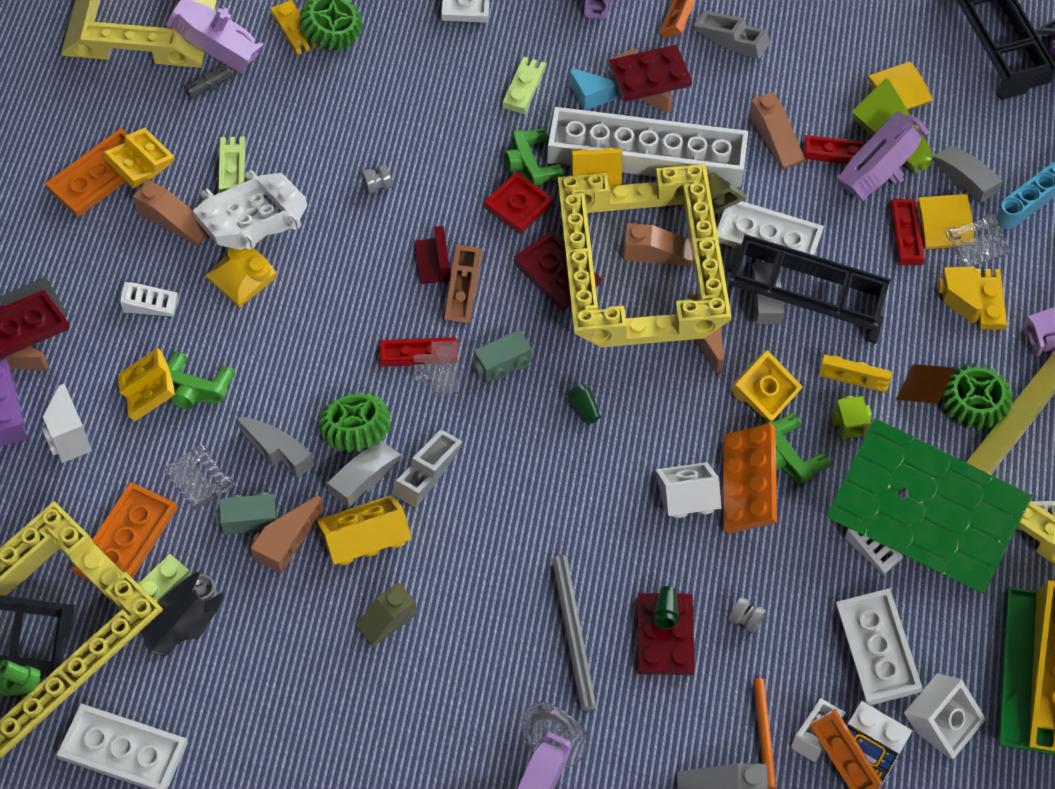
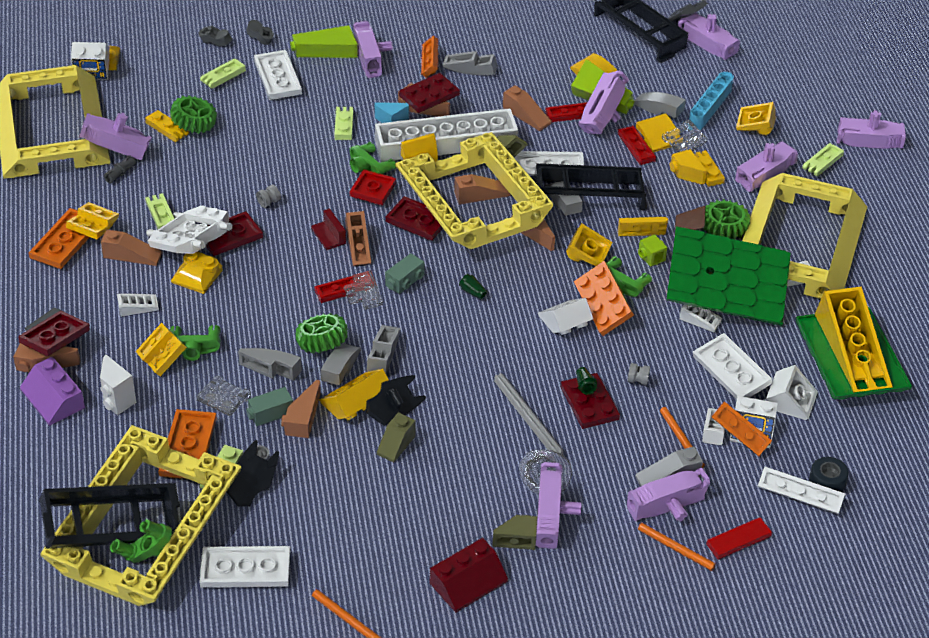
camera: 20 degrees left, 15 degrees down
(320, 226) = (243, 232): none -> dark red plate
(406, 555) = (391, 399): none -> black shield

